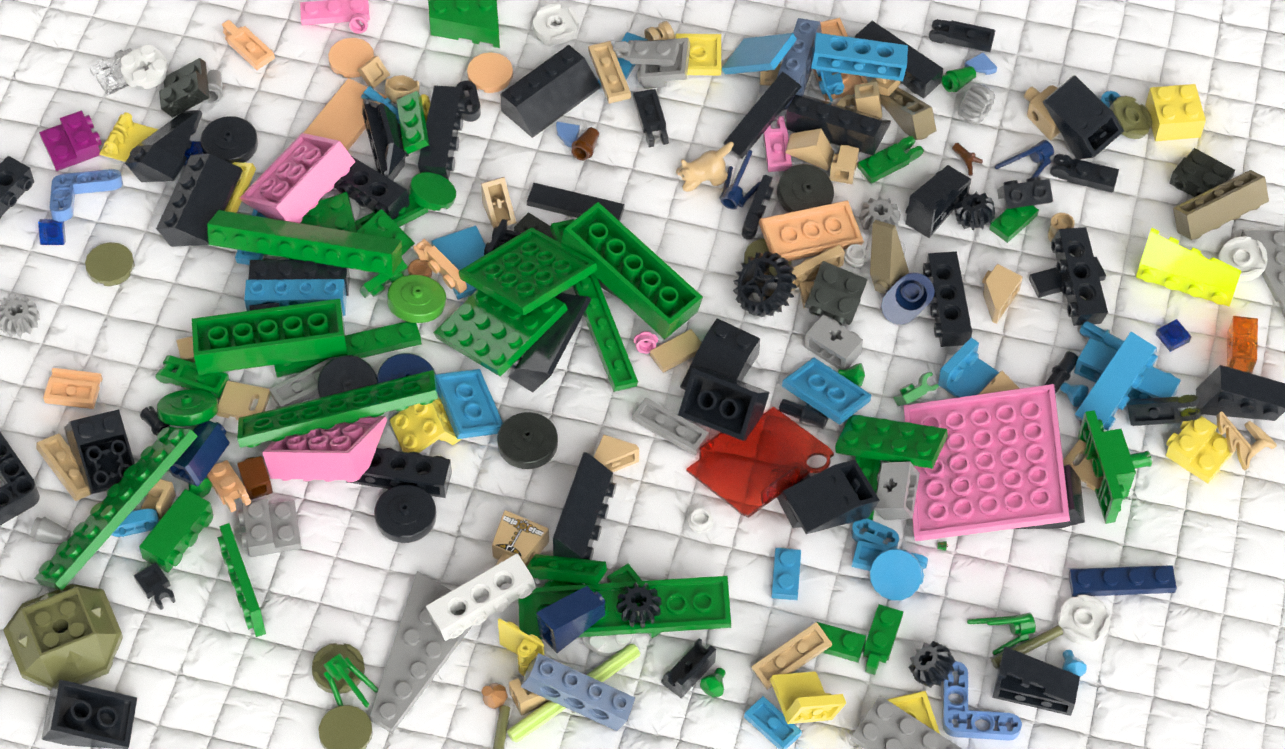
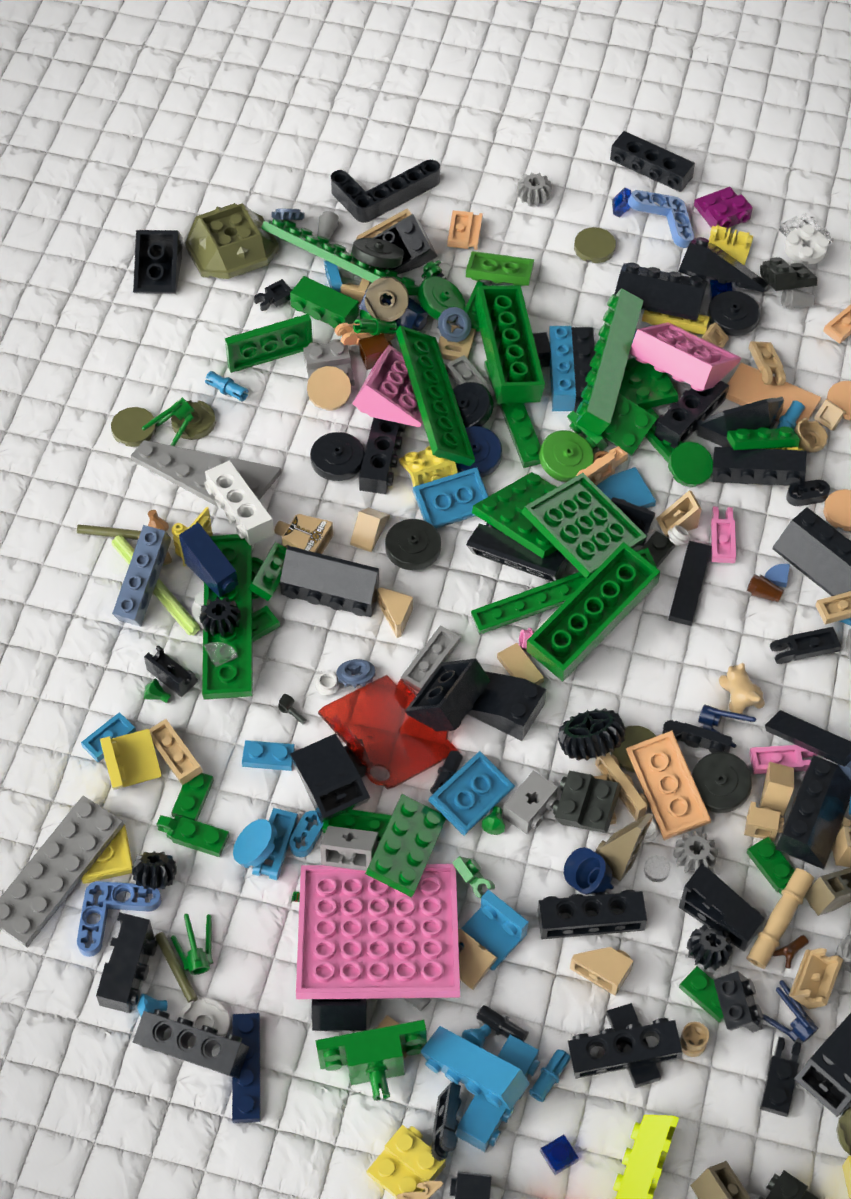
camera: 90 degrees right, 0 degrees up
(28, 571) = (288, 214): none -> sand blue gear
(127, 458) = (377, 252): none -> pearl dark grey wheel
(135, 421) = (431, 269): none -> green plate
(142, 351) = (499, 268): none -> bright green plate
(192, 444) = (399, 300): none -> dark tan plate
(233, 466) = (374, 326): none -> green pin
(239, 395) = (462, 321): none -> sand blue gear
(261, 159) = (715, 335): none -> tan plate
(293, 631) = (226, 386): none -> dark azure pin
(303, 115) = (767, 362): none -> tan hinge
(308, 522) = (329, 388): none -> tan tile
(502, 483) = (368, 528): none -> tan slope
(520, 171) = (723, 537): none -> bright pink hinge
(524, 205) = (679, 535): none -> white plate
(682, 606) = (220, 652): none -> clear tile
(688, 482) = (353, 667): none -> sand blue gear
(726, 559) = (285, 706): none -> pearl dark grey hand
(942, 154) = (780, 918): none -> tan piece
(997, 136) = (815, 978): none -> tan hinge
(1132, 584) = (151, 1035): none -> black brick

